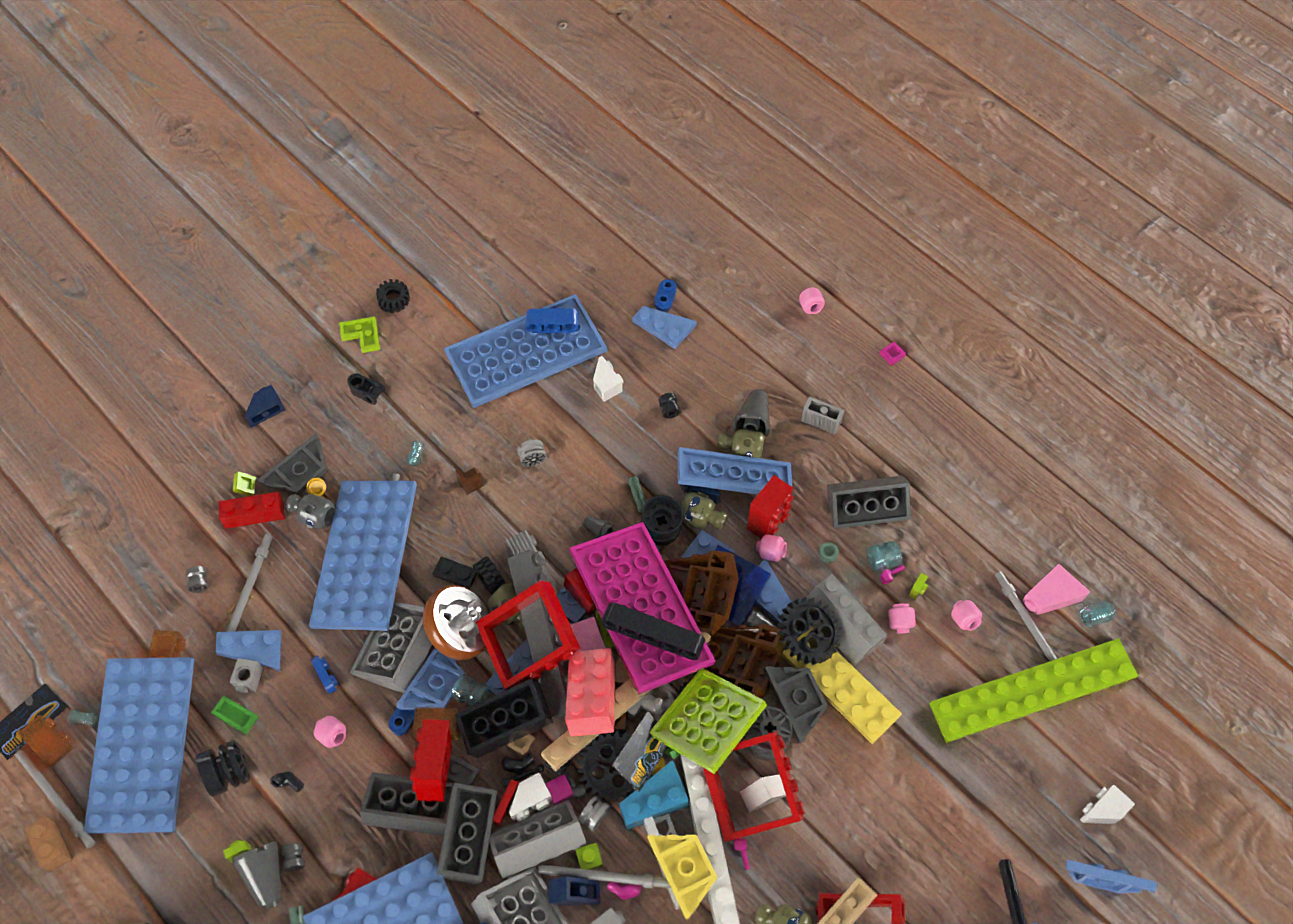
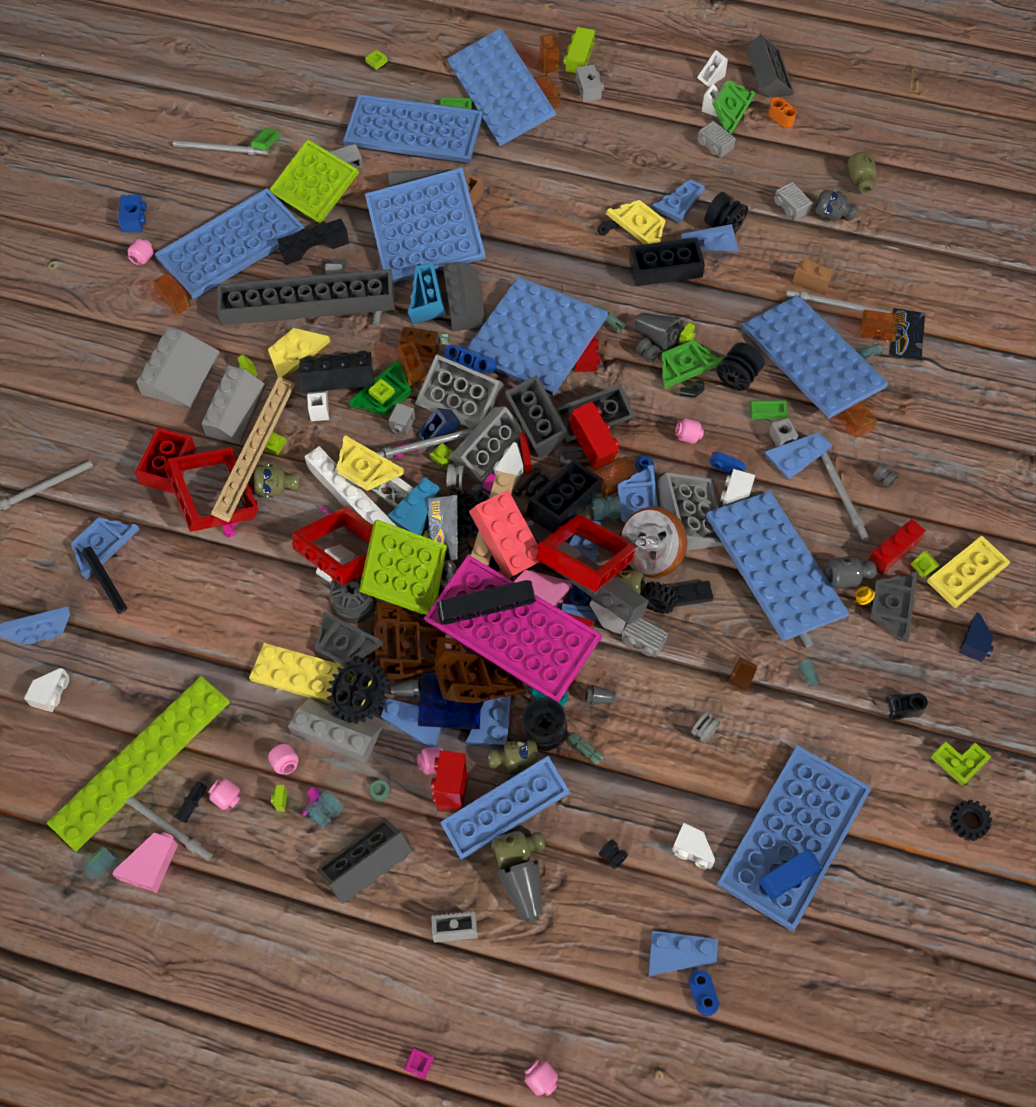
camera: 150 degrees right, 0 degrees up
(215, 459) = (968, 572): none -> light yellow plate
(266, 818) = (686, 362): none -> bright green wing
(337, 642) = (739, 487): none -> white slope
(999, 626) = (191, 802): none -> black axle

